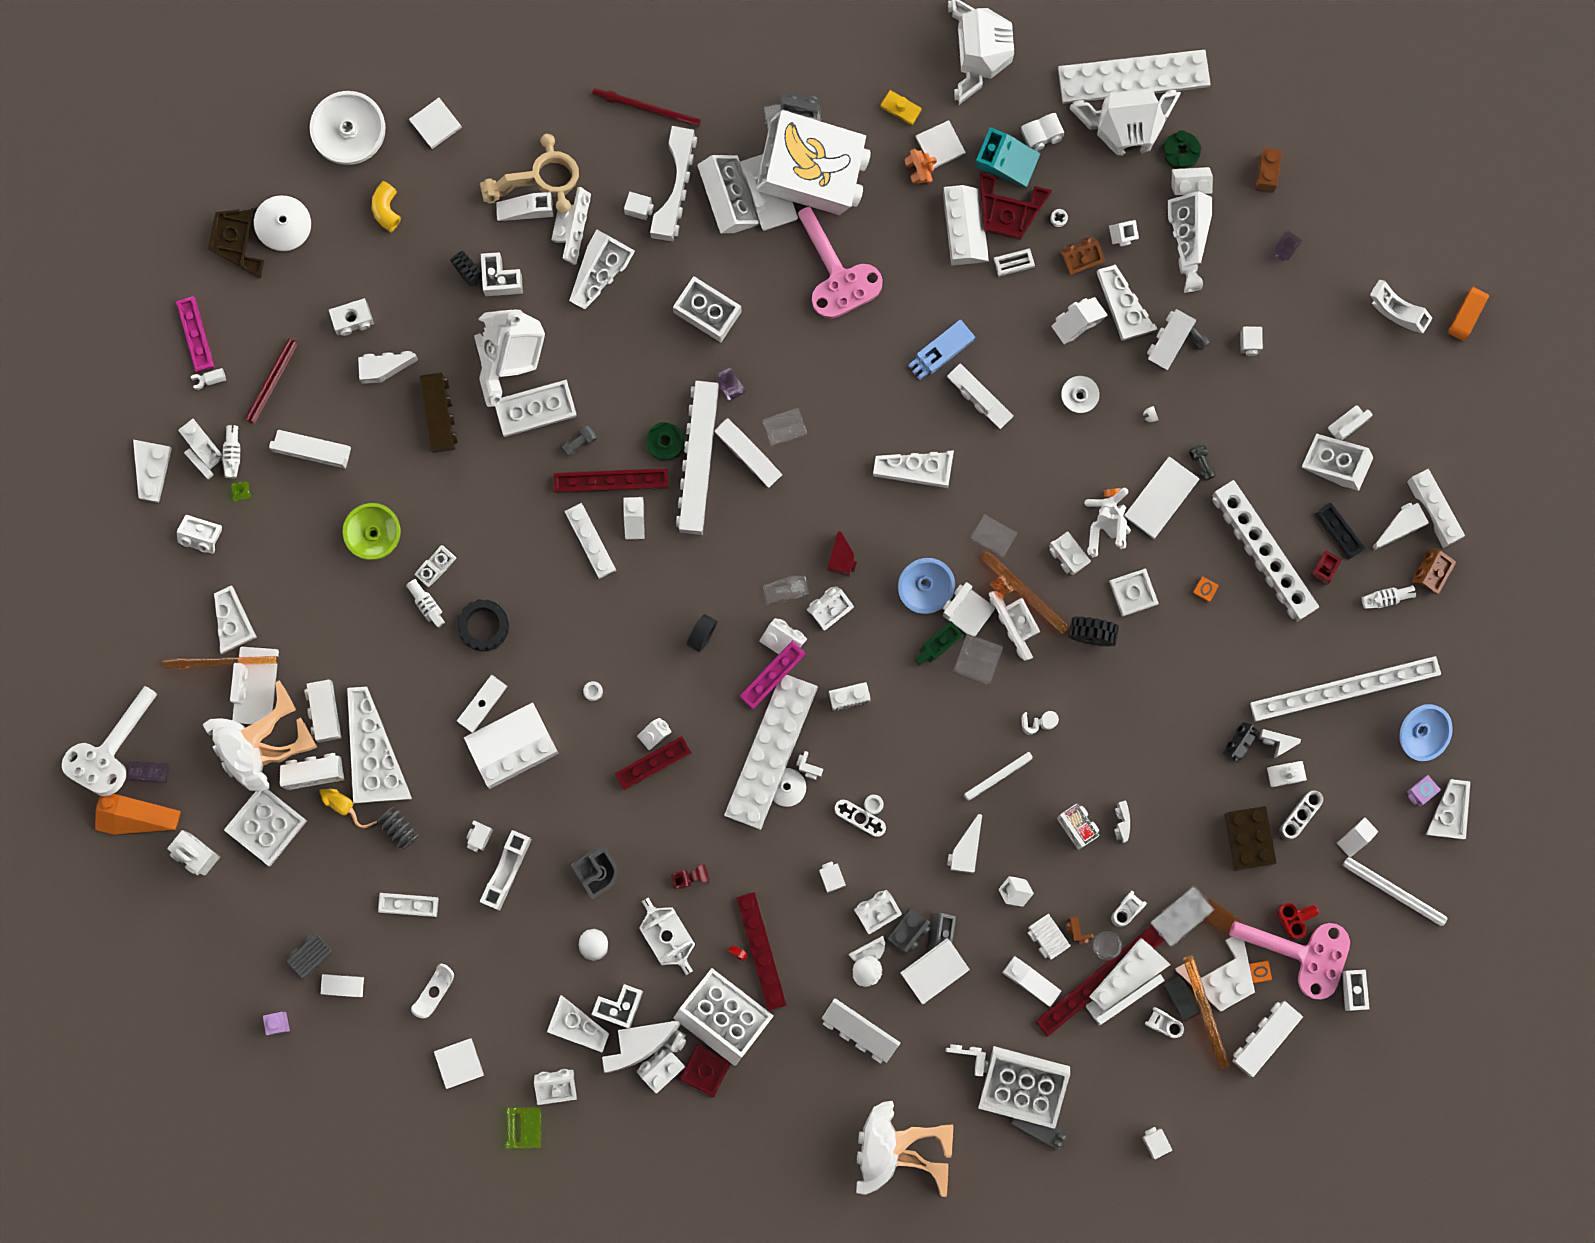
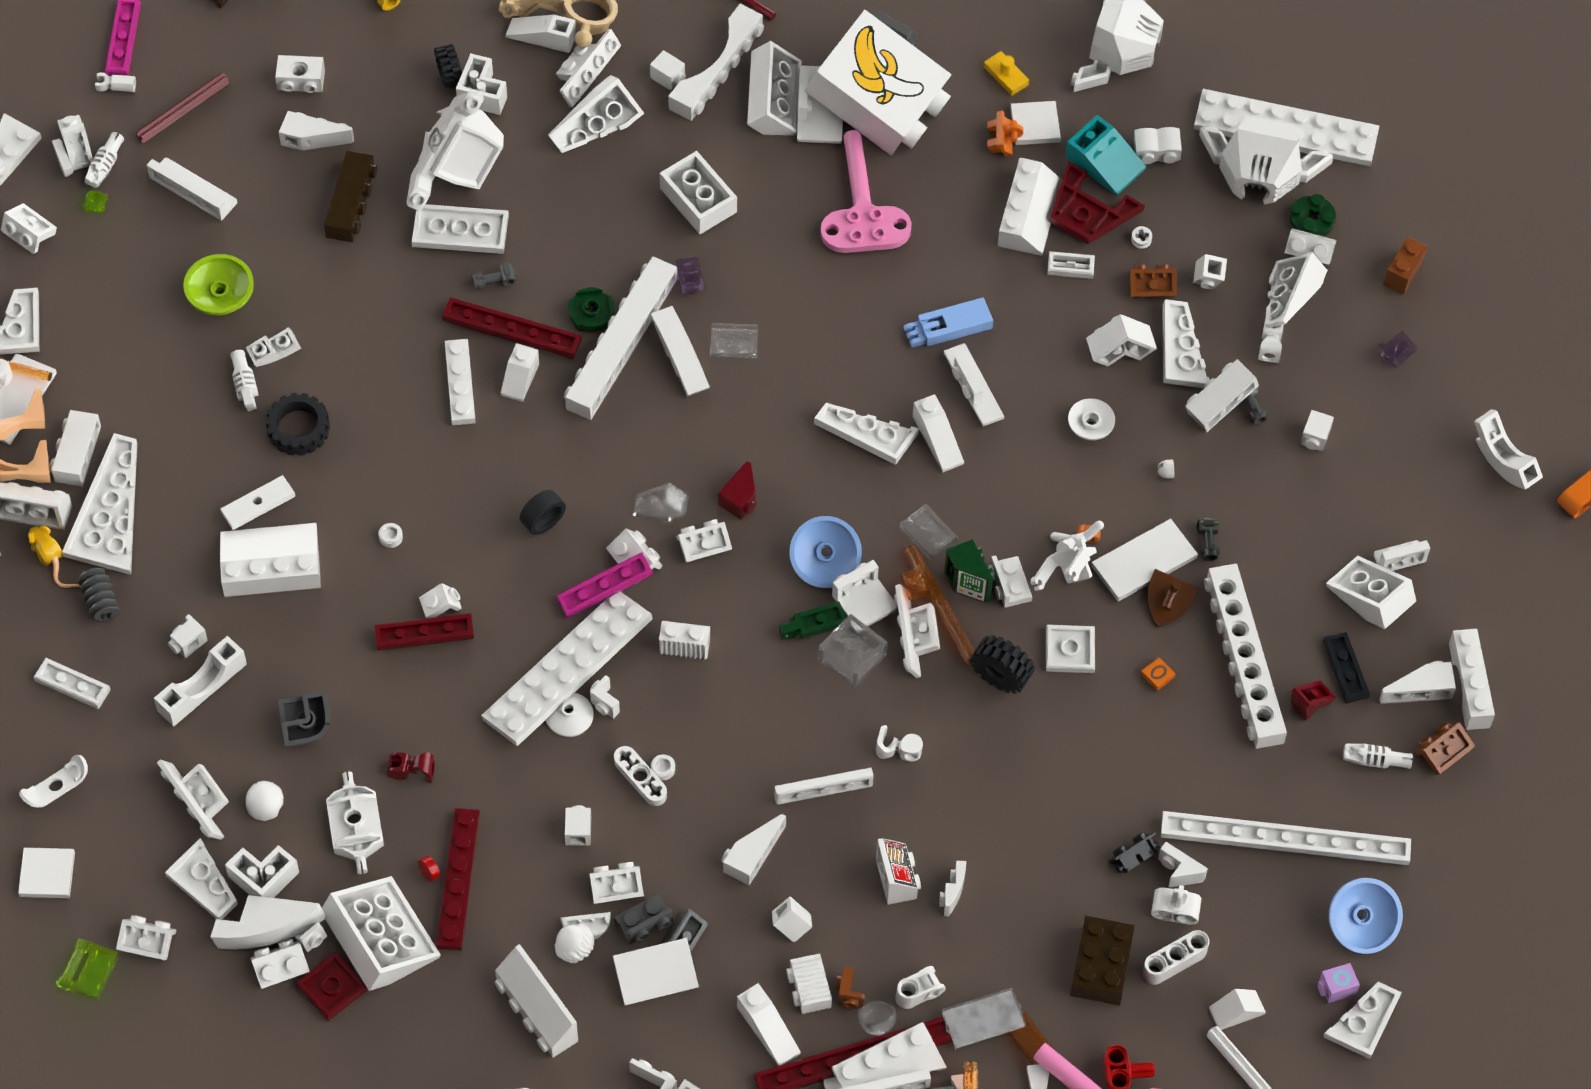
camera: 20 degrees right, 20 degrees down
(544, 960) = (199, 794): none -> white bracket
(970, 450) = (937, 432): none -> white slope
(1039, 563) = (968, 571): none -> dark green slope
(1191, 522) = (1169, 597): none -> reddish brown shield

